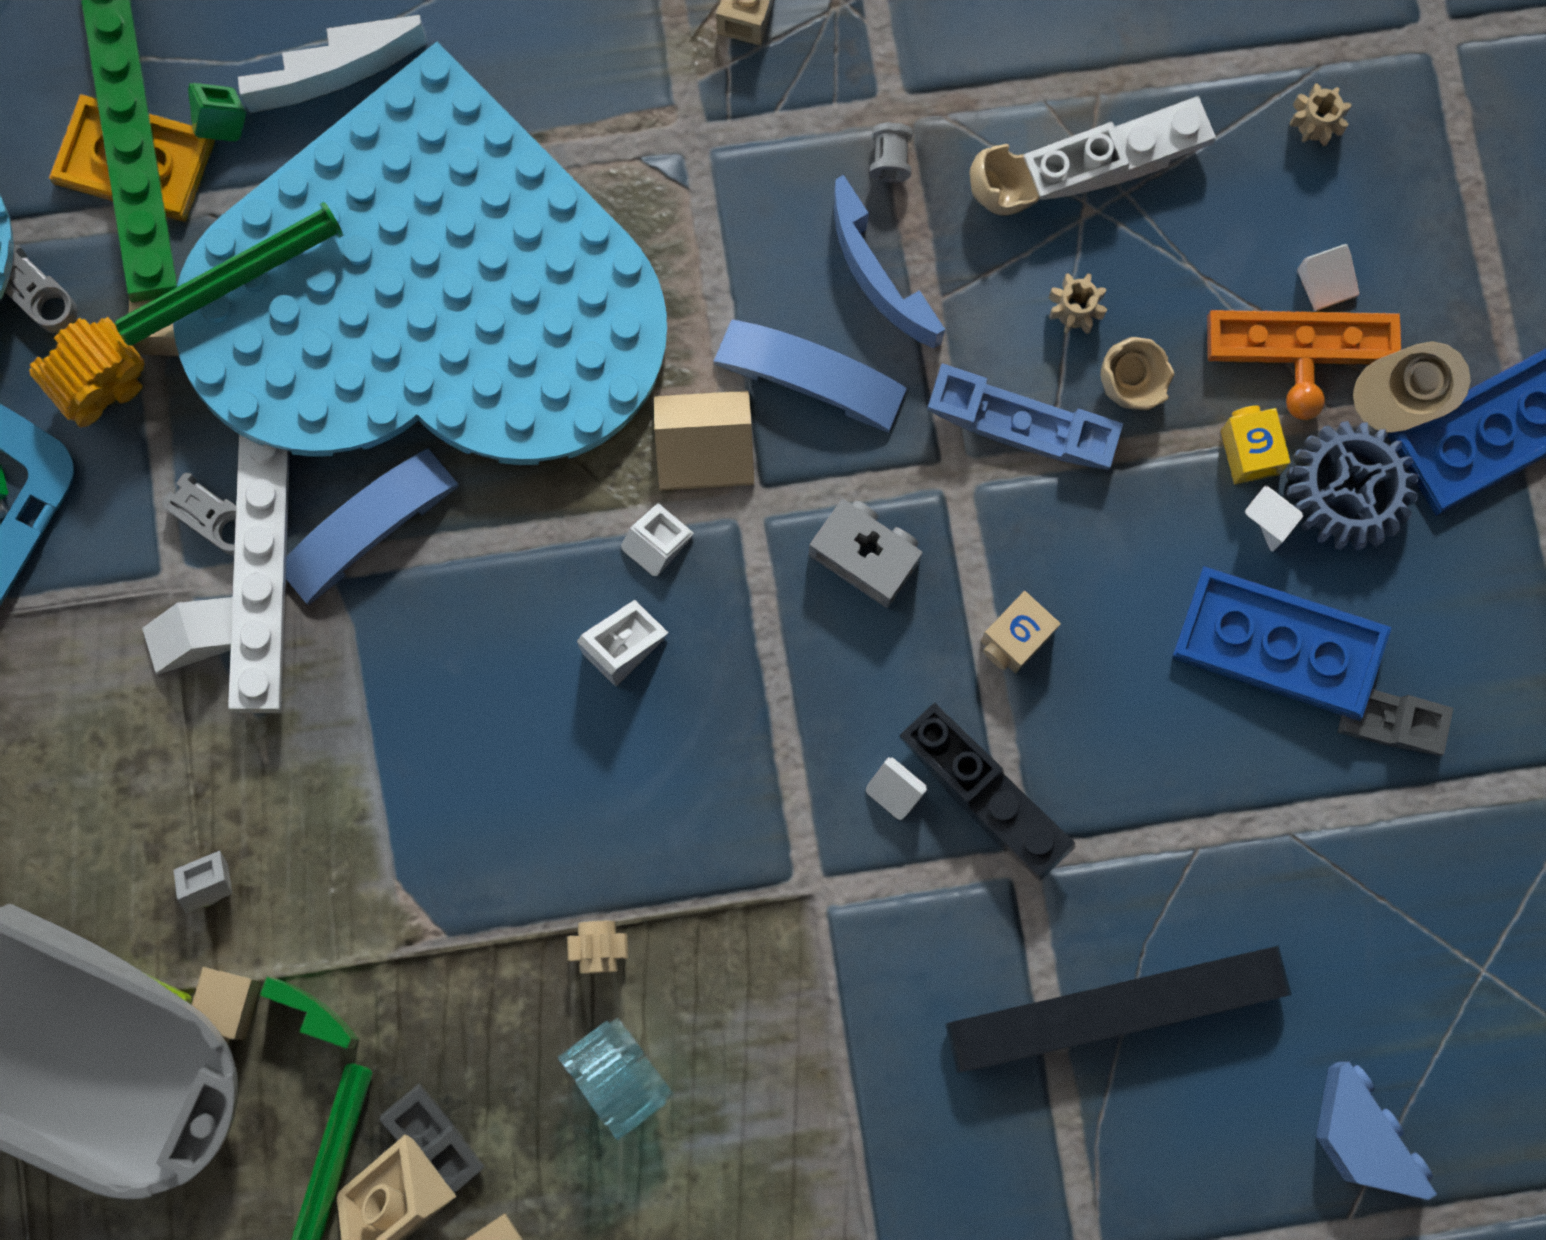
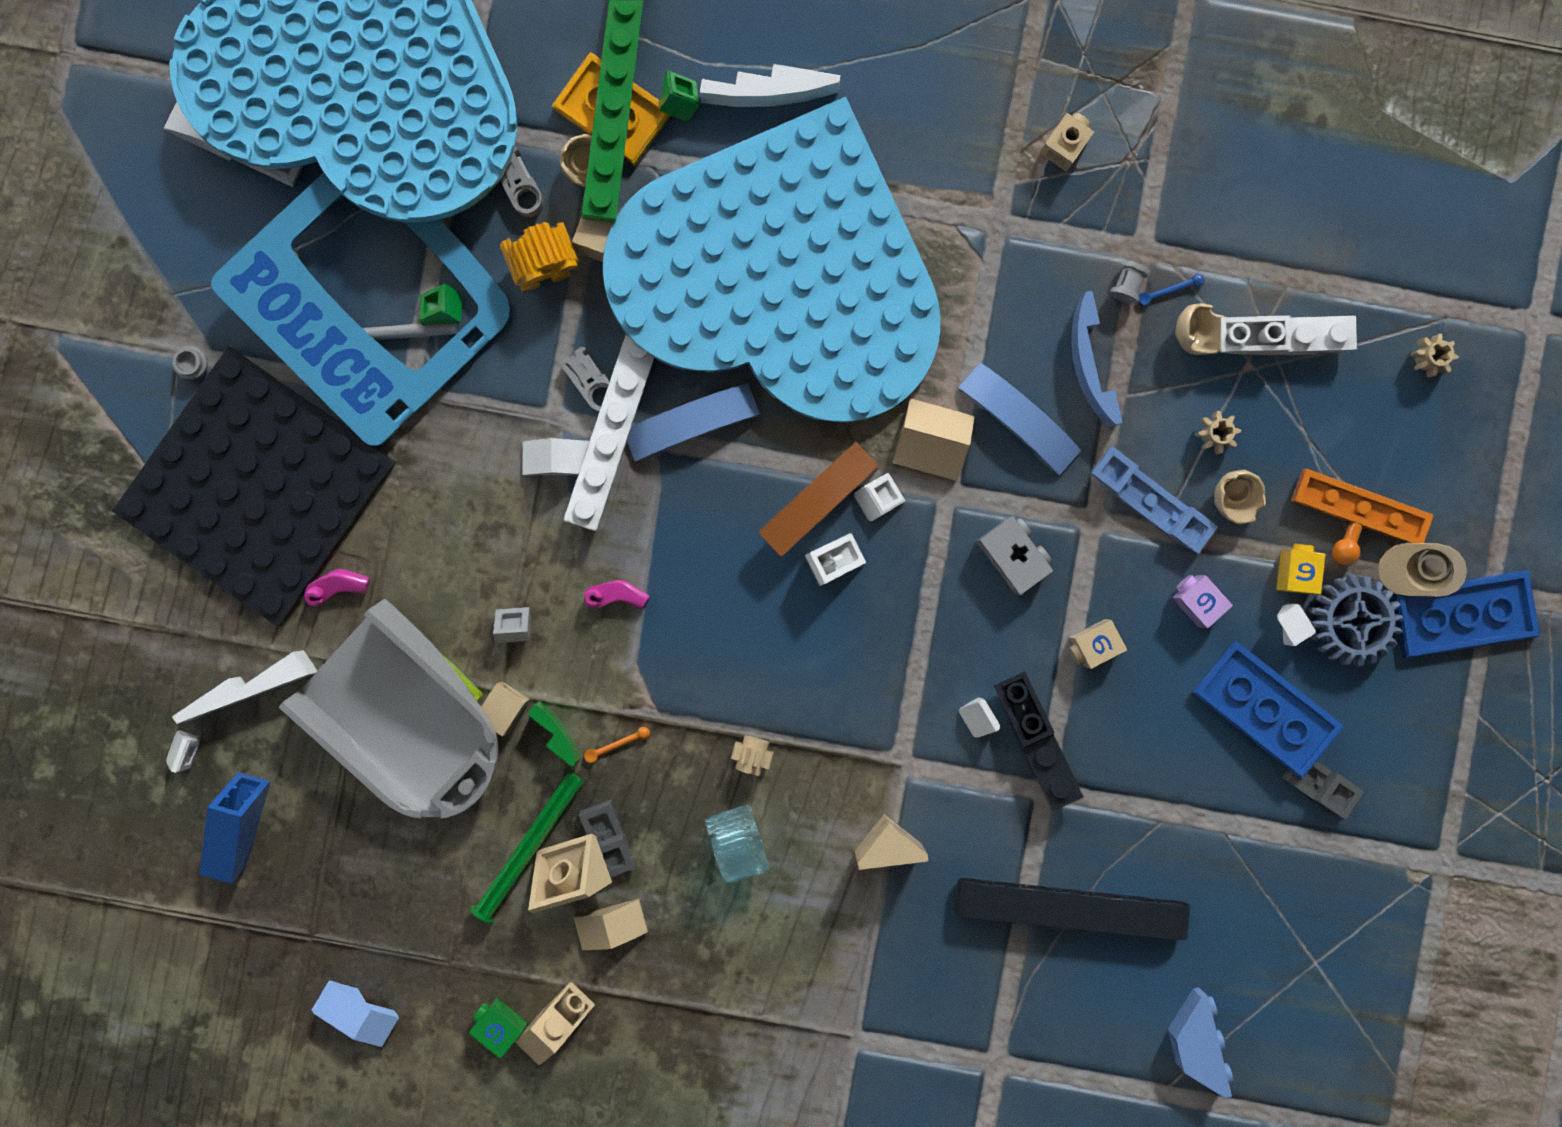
camera: 20 degrees right, 10 degrees up
(100, 234) = (575, 159): none -> tan hair
(228, 276) = (653, 224): green axle -> none
(334, 787) = (614, 591): none -> dark pink arm
(374, 1028) = (591, 754): none -> orange hinge
(572, 568) = (818, 499): none -> dark orange slope
(830, 1001) = (889, 846): none -> tan slope
(920, 167) = (1145, 298): none -> blue hinge
(1137, 527) = (1201, 600): none -> lavender brick
(1329, 277) = (1395, 472): white slope -> none

